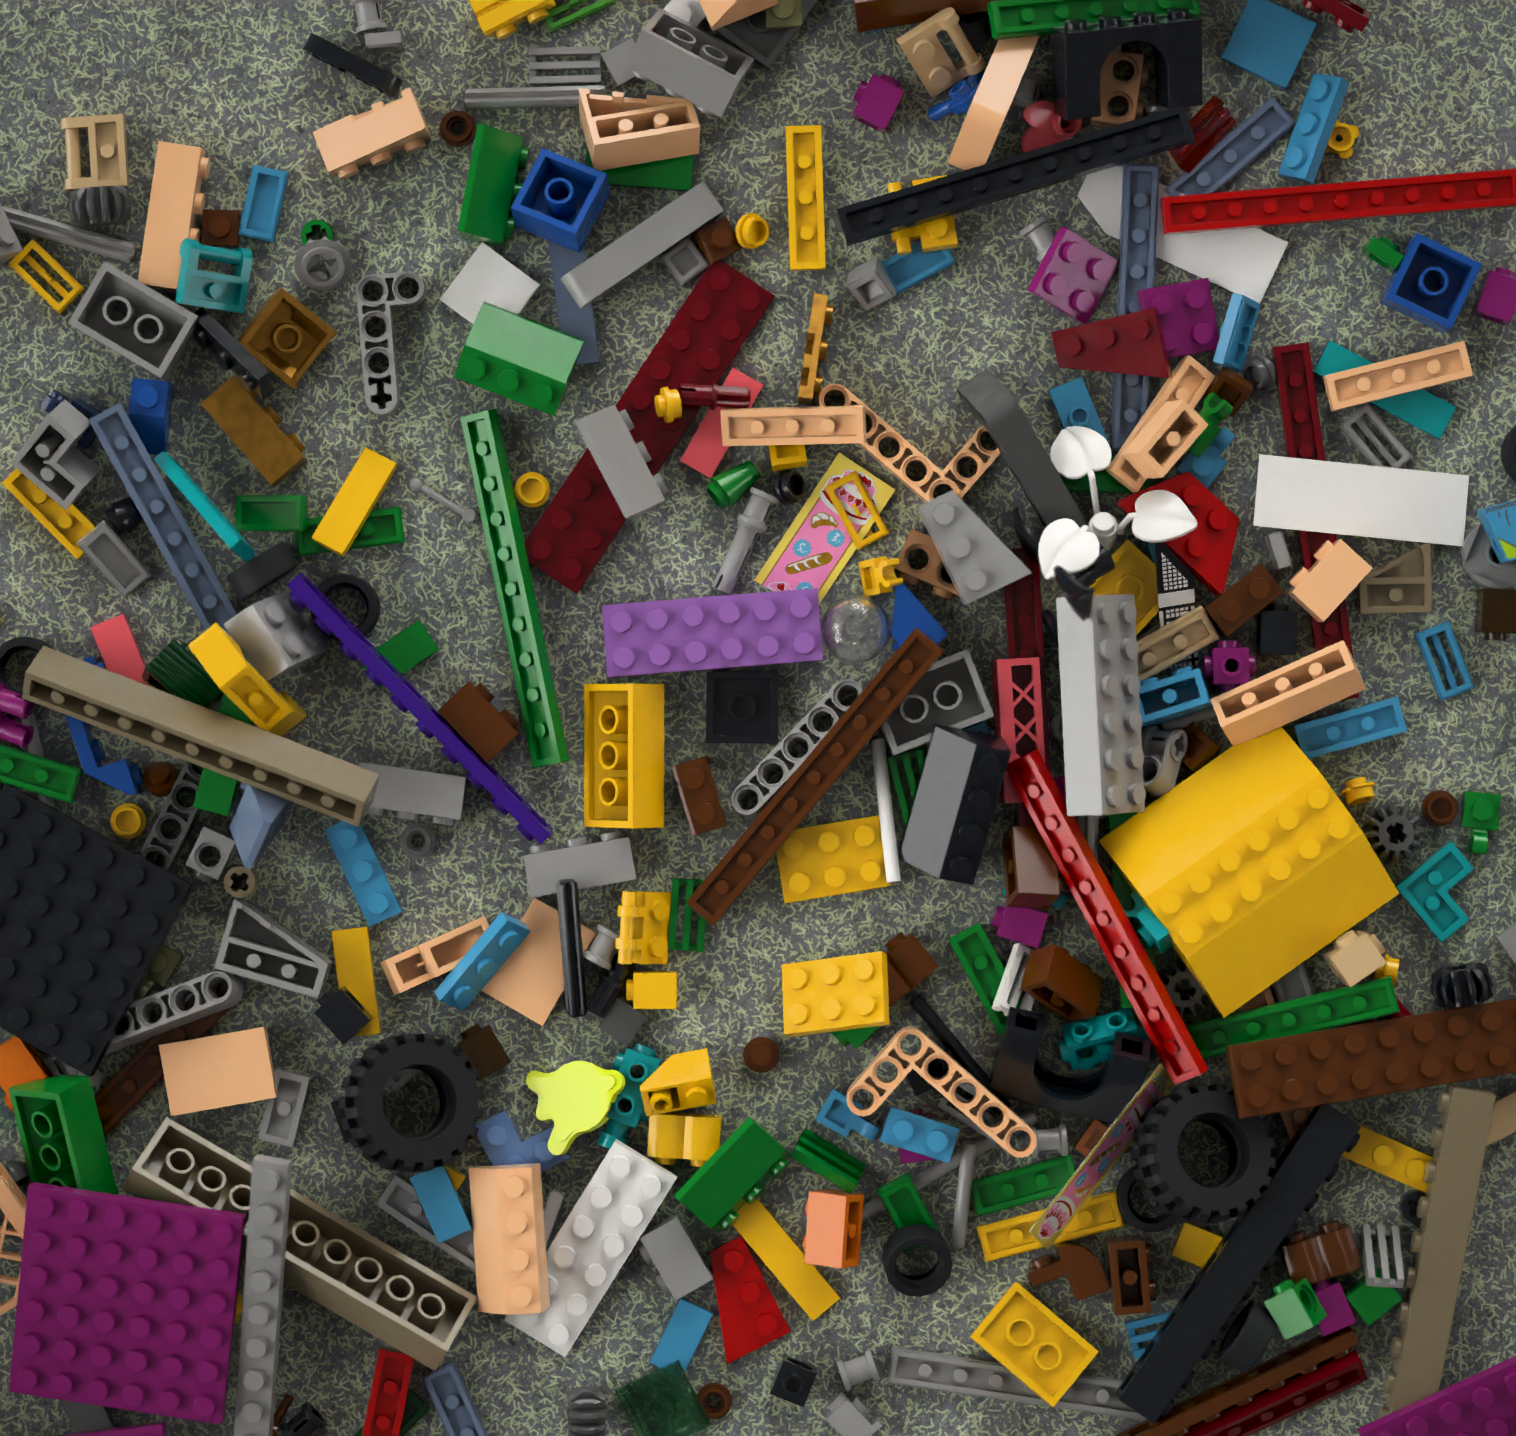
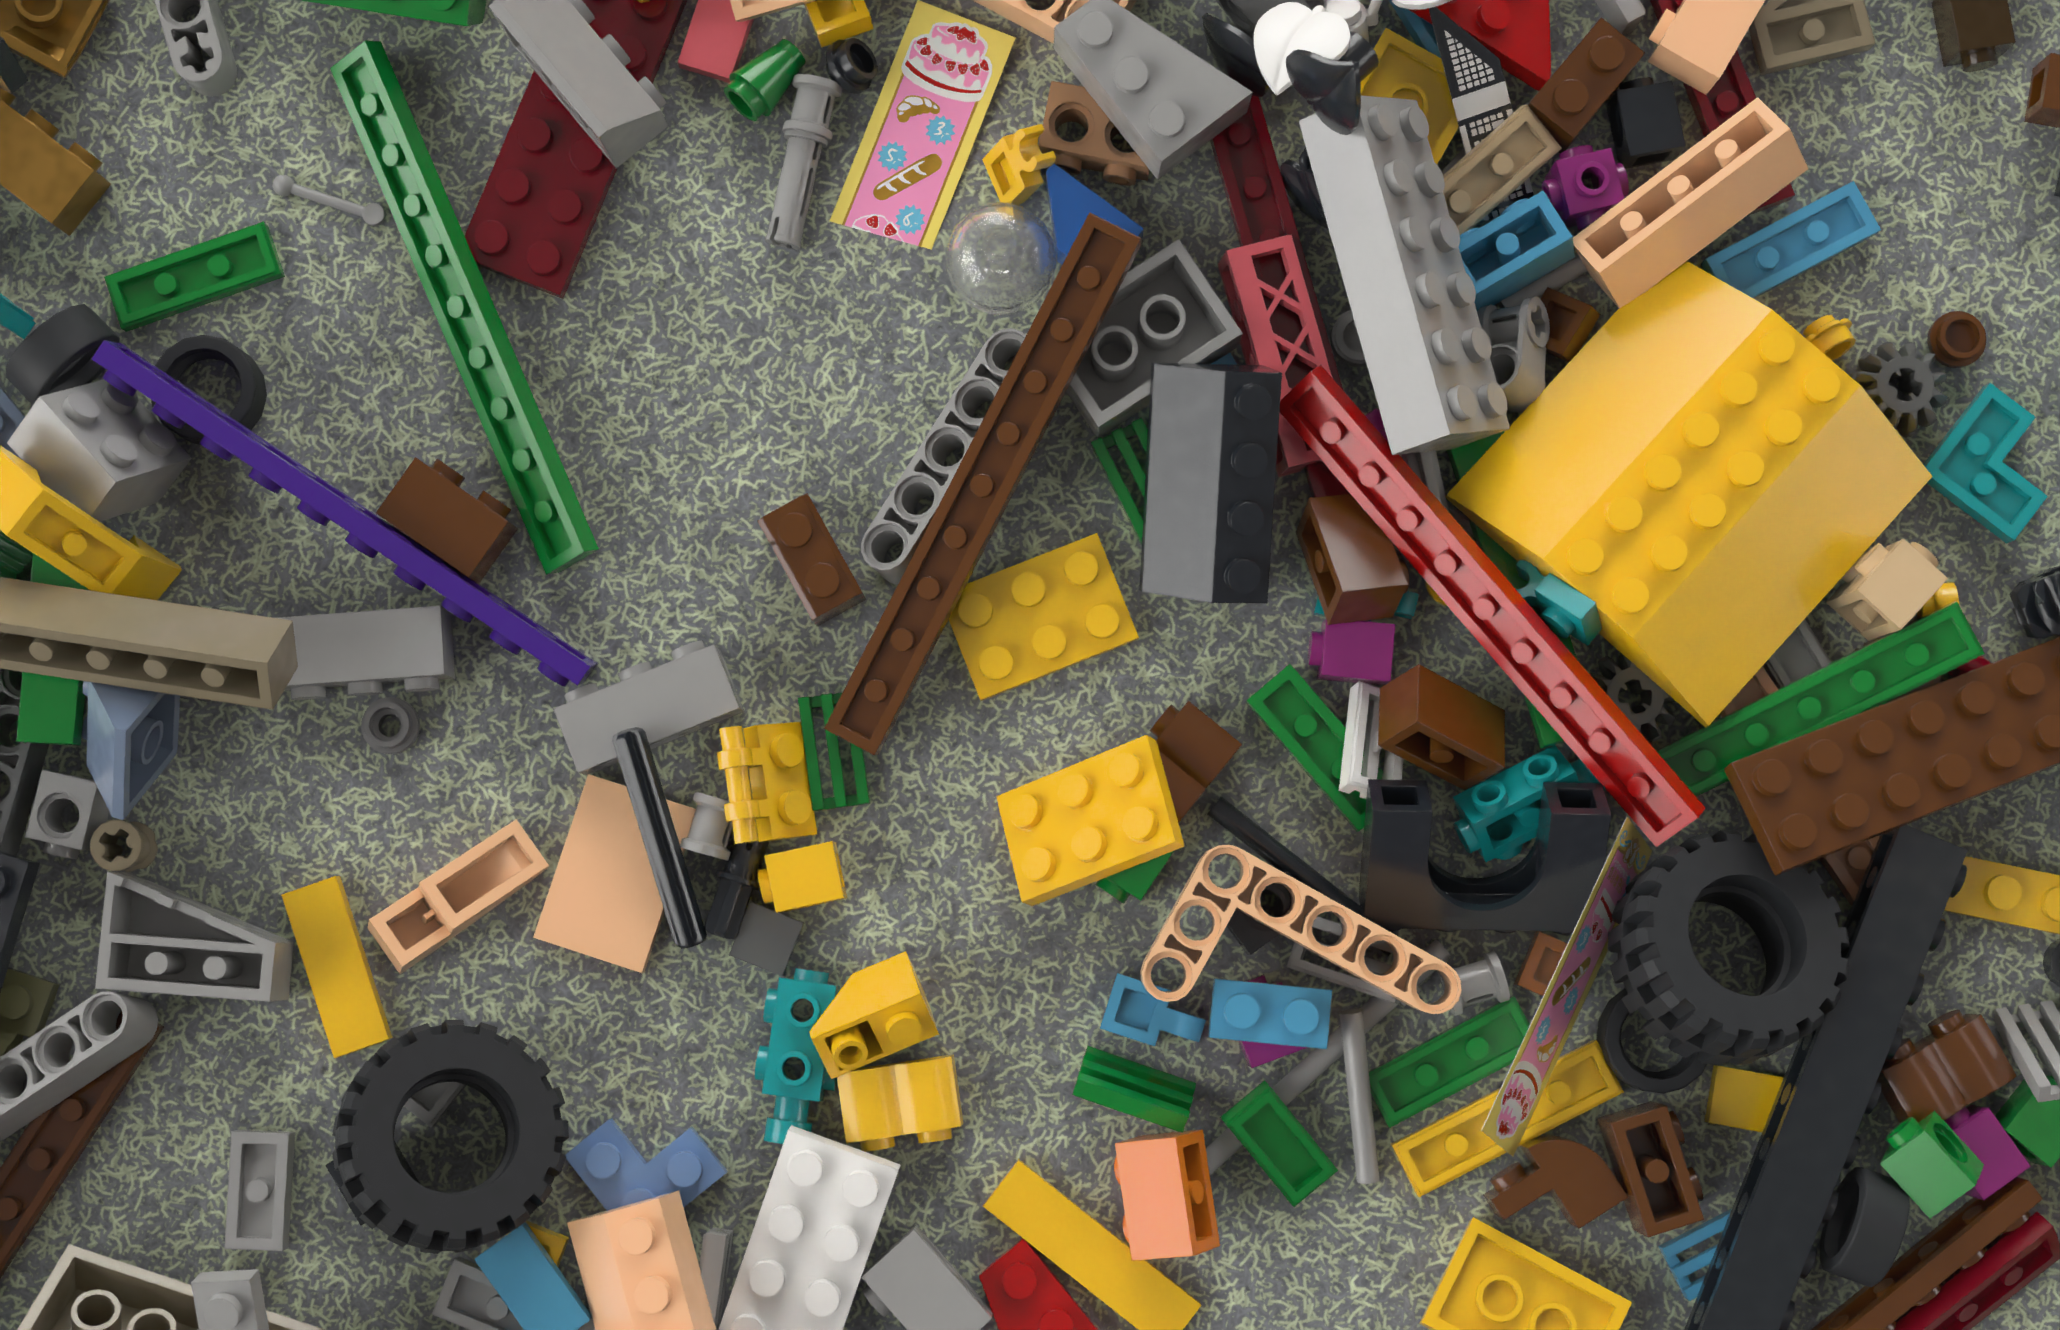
camera: 10 degrees left, 5 degrees down
(218, 1071) = (140, 1153): light nougat tile -> none
(271, 513) = (67, 272): green tile -> none
(342, 1013) = (318, 1019): black brick -> none
(354, 502) = (190, 227): yellow tile -> none
(363, 872) = (314, 790): dark azure plate -> none
(408, 648) = (318, 435): green tile -> none
(482, 961) = (524, 890): dark azure plate -> none
(483, 1050) = (553, 1031): dark brown brick -> none
(532, 490) = (462, 154): yellow plate -> none
(574, 1099) = (713, 1078): neon yellow tile -> none
(624, 755) = (683, 523): yellow slope -> none
(712, 632) = (779, 306): medium lavender brick -> none
(734, 1176) = (989, 1144): green slope -> none
(742, 707) = (850, 412): black plate -> none
(761, 1054) = (994, 944): reddish brown plate -> none
(871, 507) = (993, 117): yellow tile -> none
(885, 810) = (1106, 524): white bar -> none
(911, 1236) = (1328, 1253): black tyre -> none
(1430, 664) = (1891, 129): dark azure tile -> none
(1480, 813) = (2023, 335): green plate -> none

